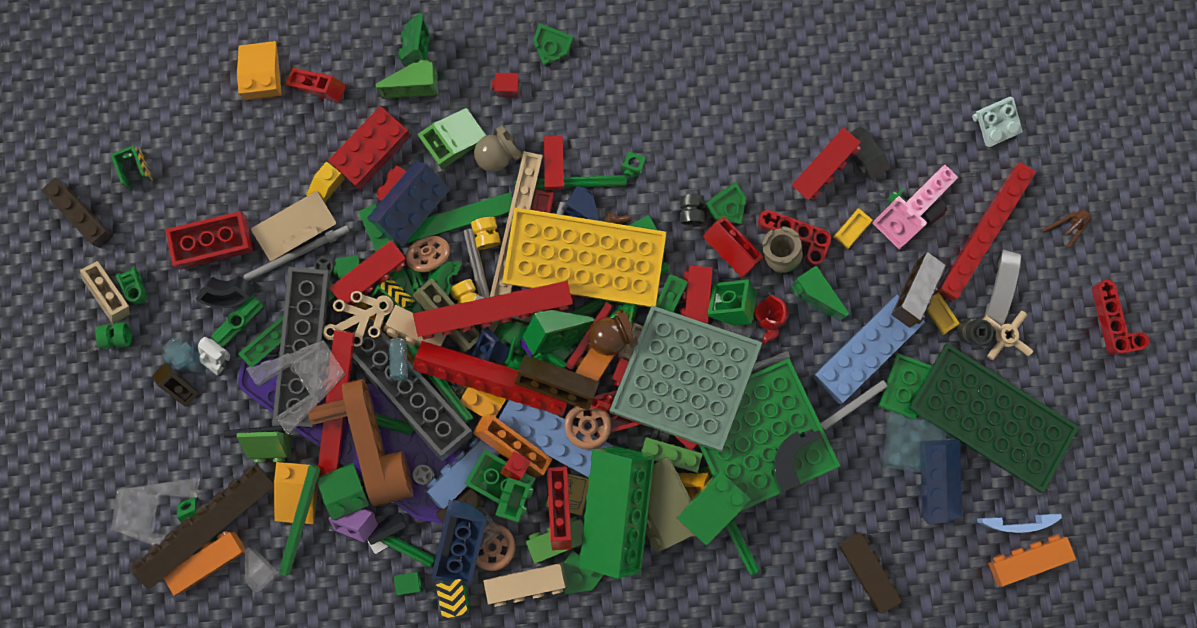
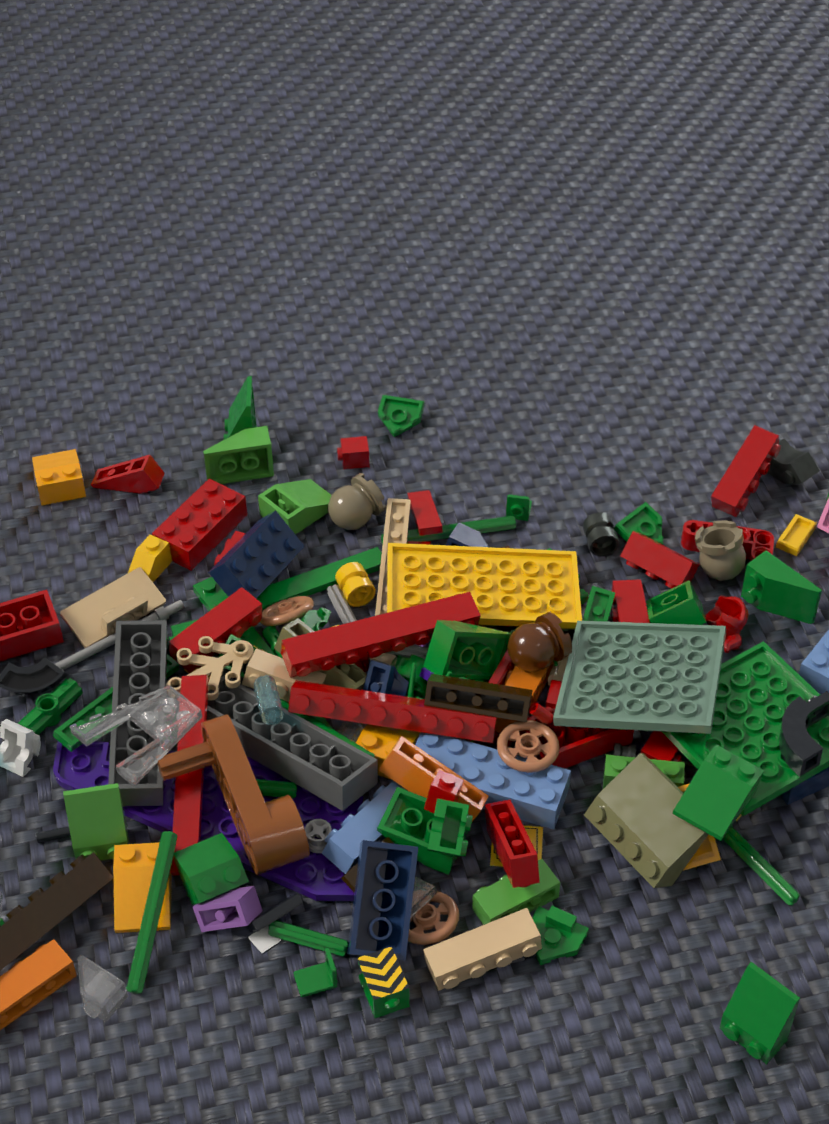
camera: 10 degrees left, 35 degrees down
(616, 511) = (590, 827): green brick -> none

